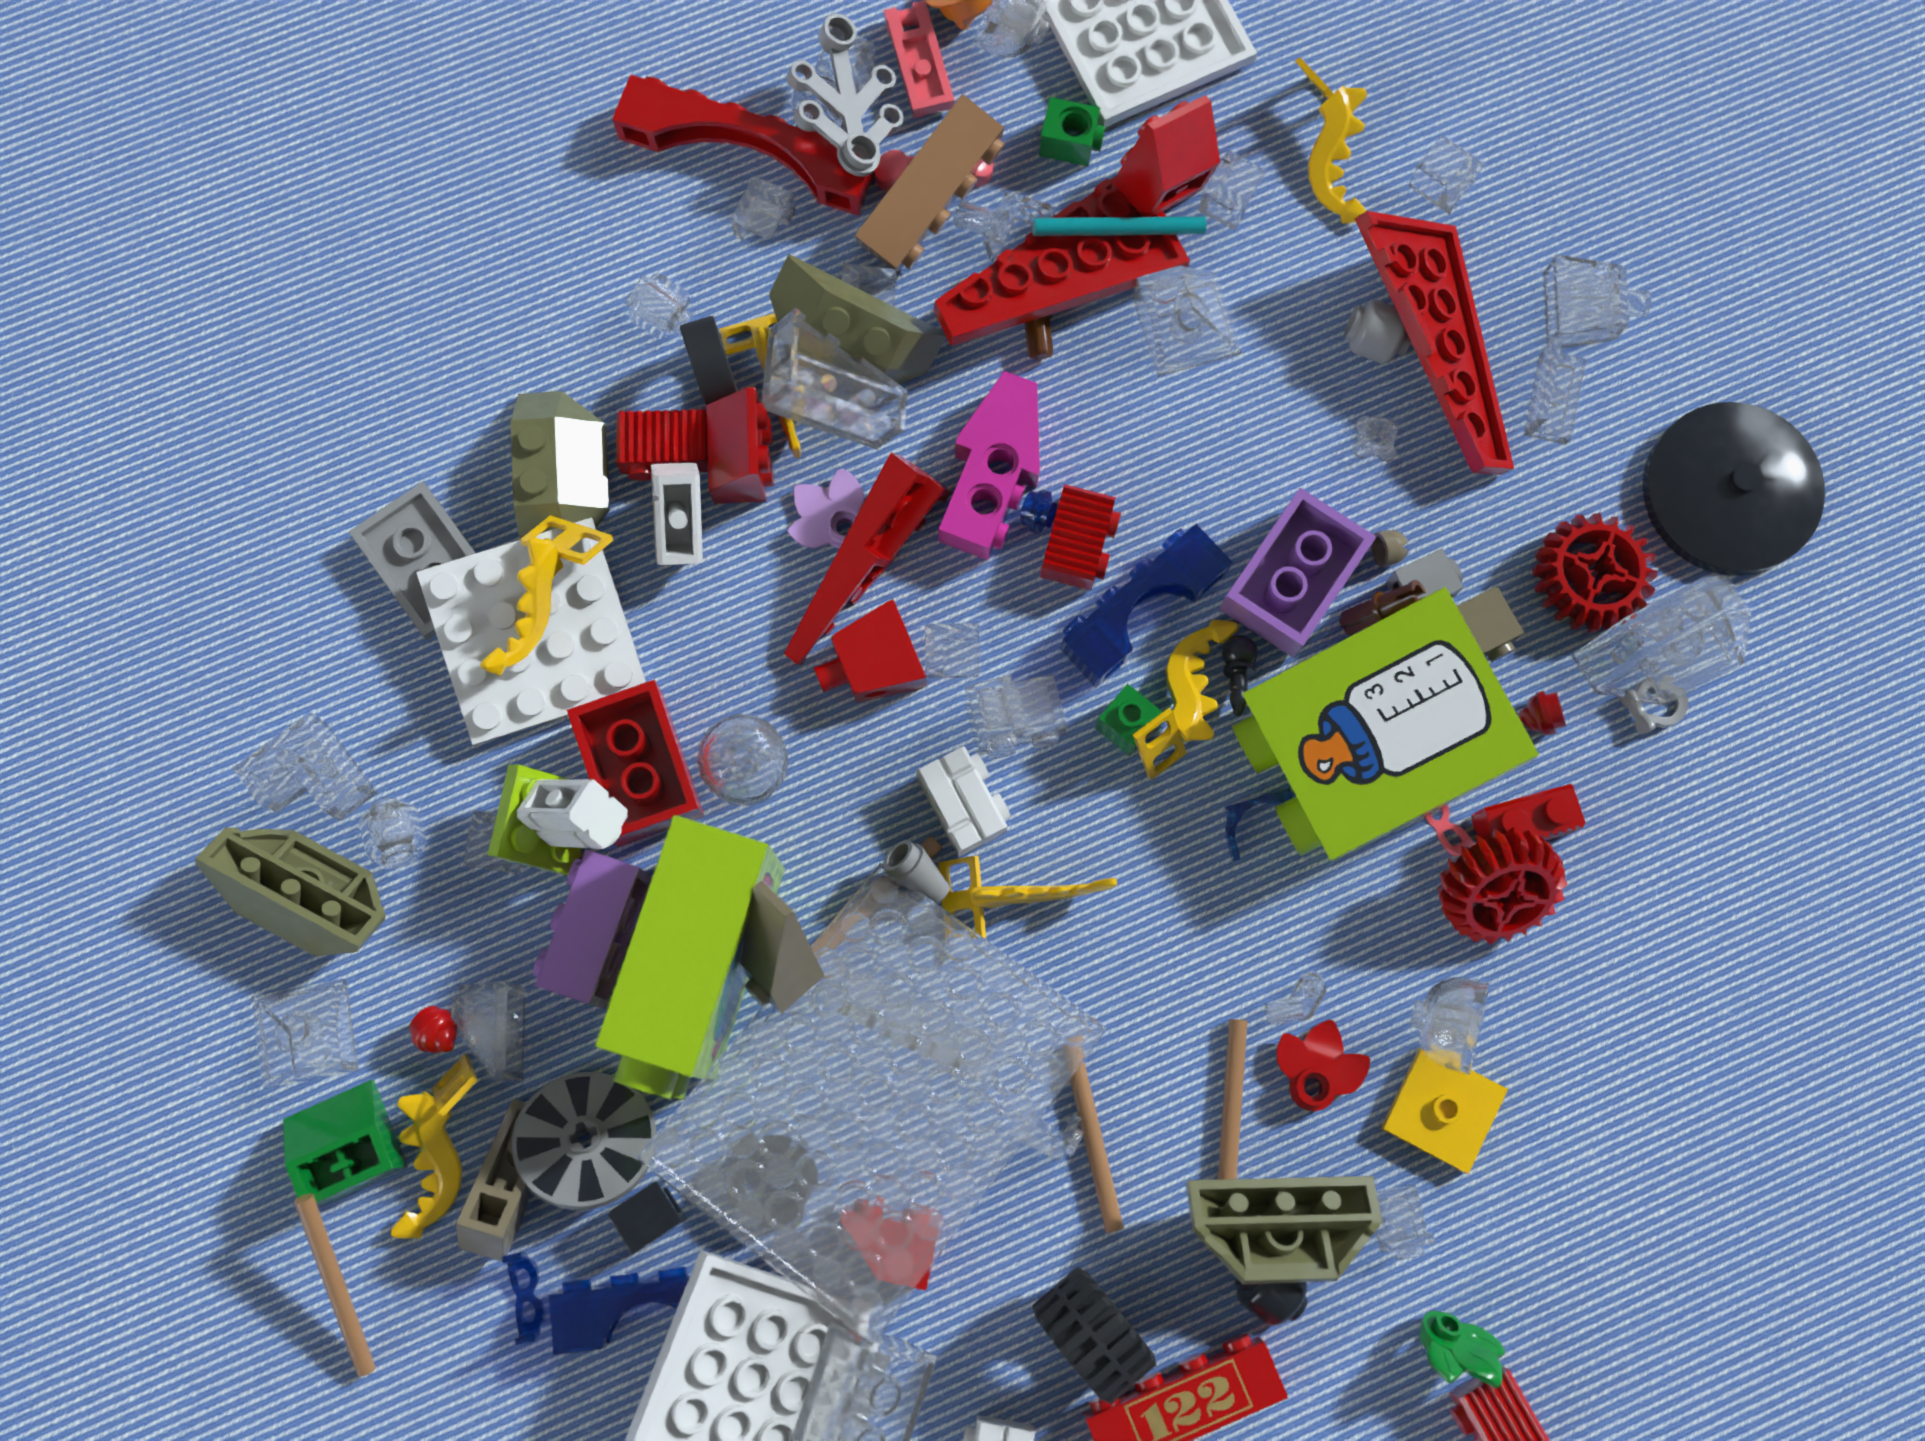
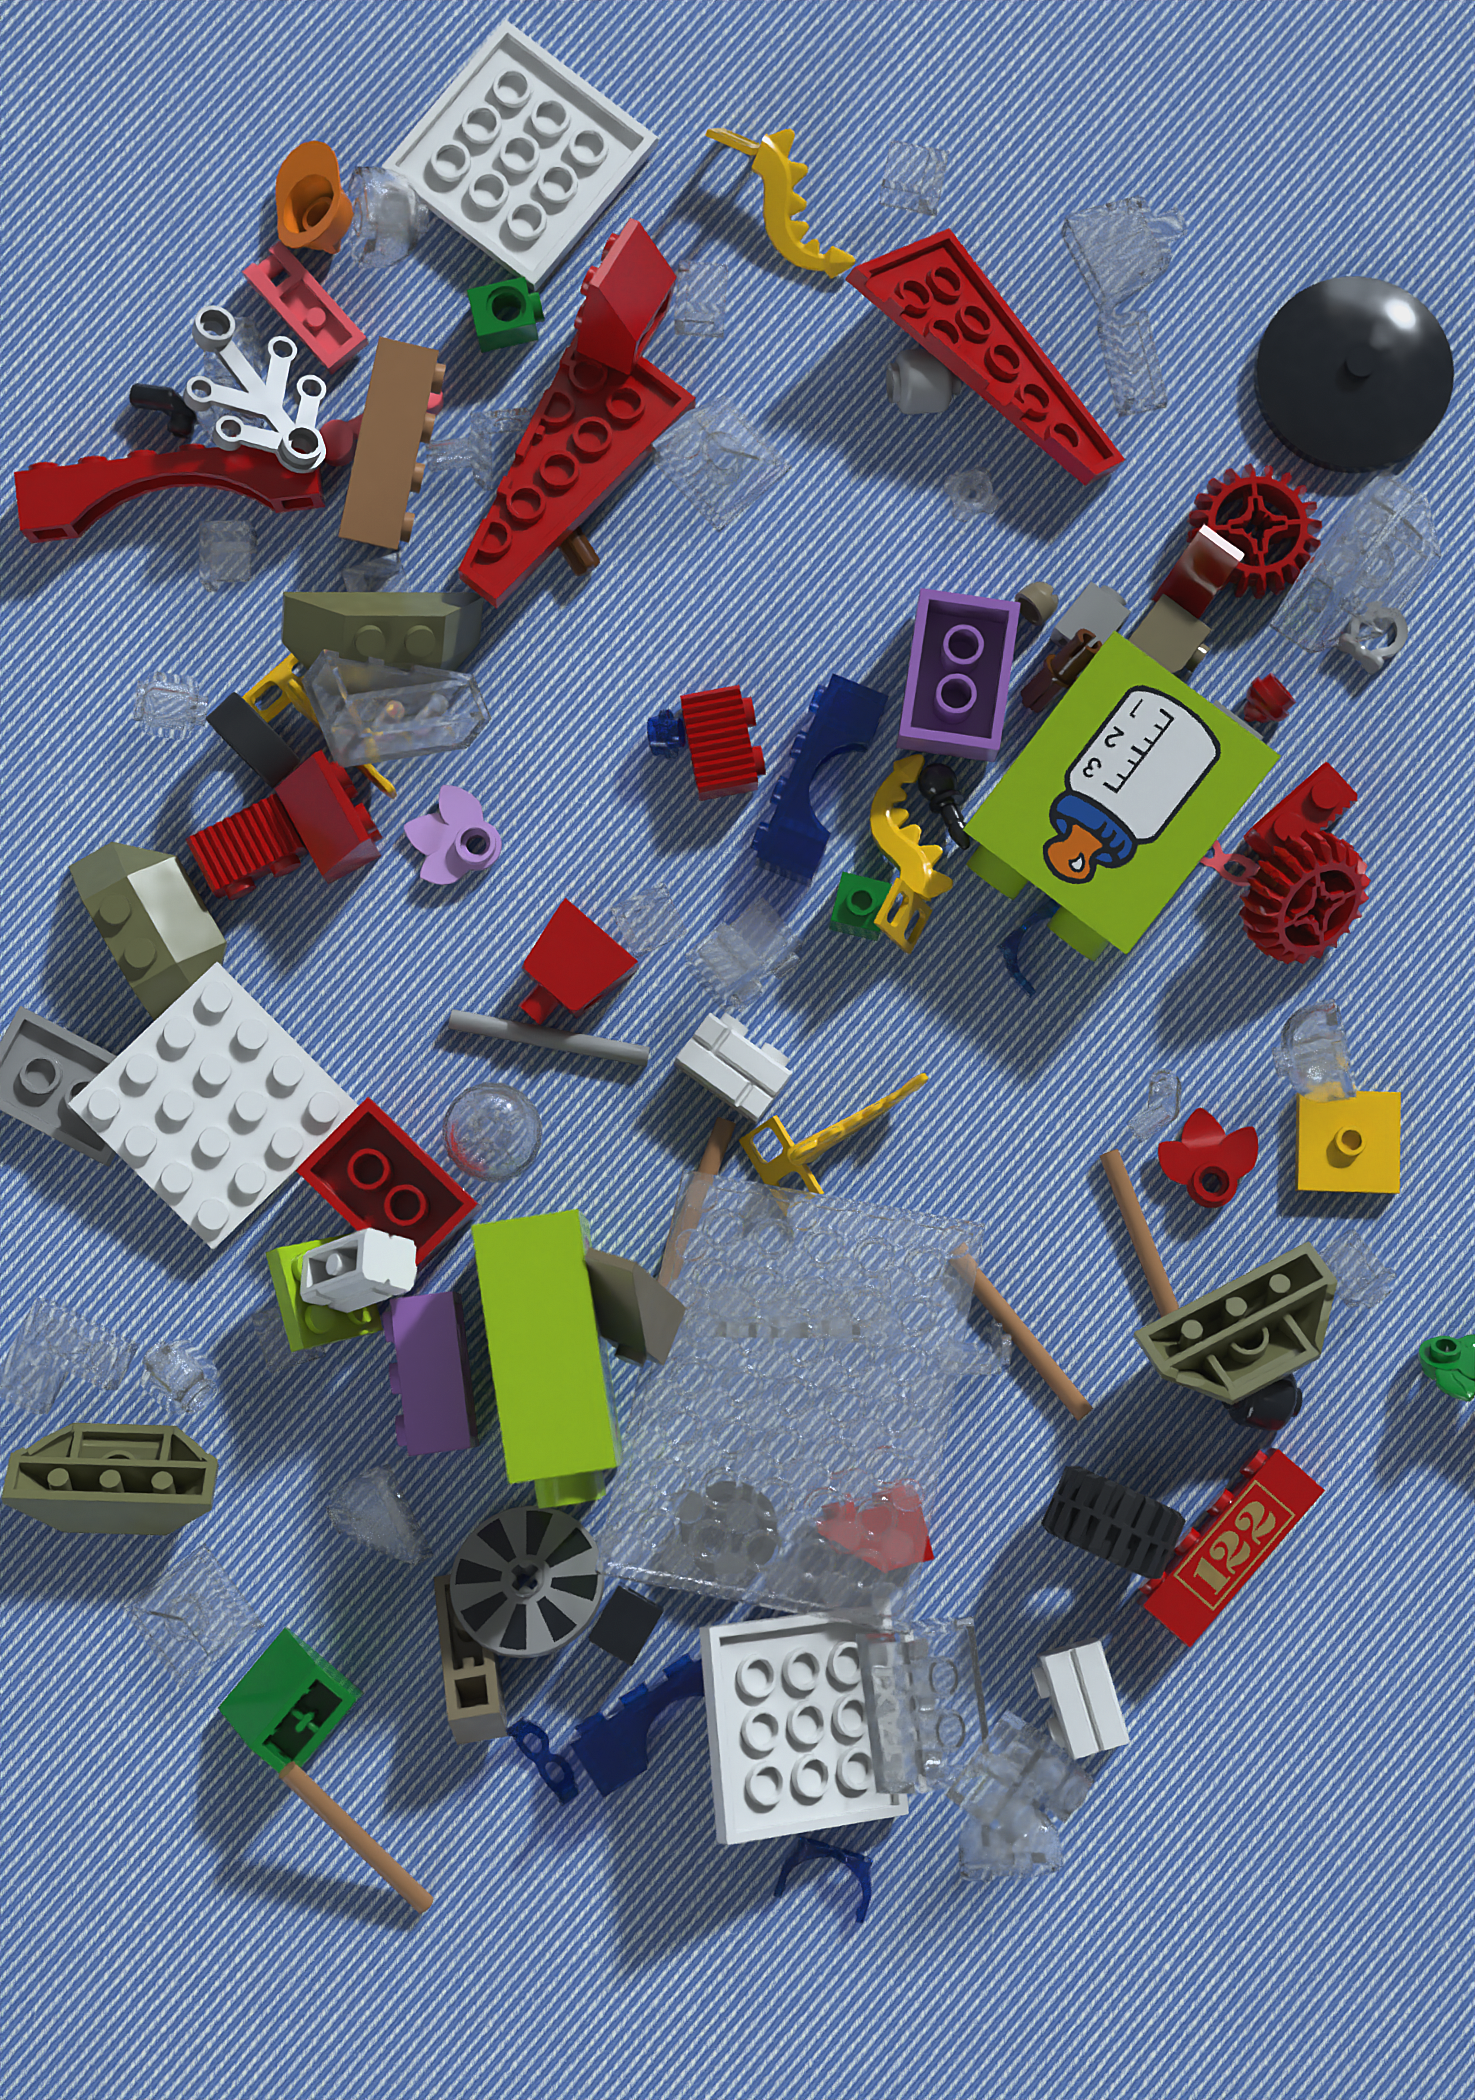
camera: 25 degrees left, 5 degrees up
(433, 1030) = (322, 1549): red plate -> none
(436, 1147) = (387, 1663): yellow piece -> none
(537, 580) = (201, 1054): yellow piece -> none
(677, 513) = (302, 915): white brick -> none
(775, 77) = (169, 402): none -> black arm
(826, 706) = (549, 1037): none -> light grey bar
(883, 525) = (518, 819): red wedge -> none
(914, 870) = (721, 1160): light grey cone -> none
(1002, 430) = (588, 667): dark pink brick -> none
(1118, 226) = (605, 396): teal bar -> none
(1537, 581) = (1200, 572): none -> red slope

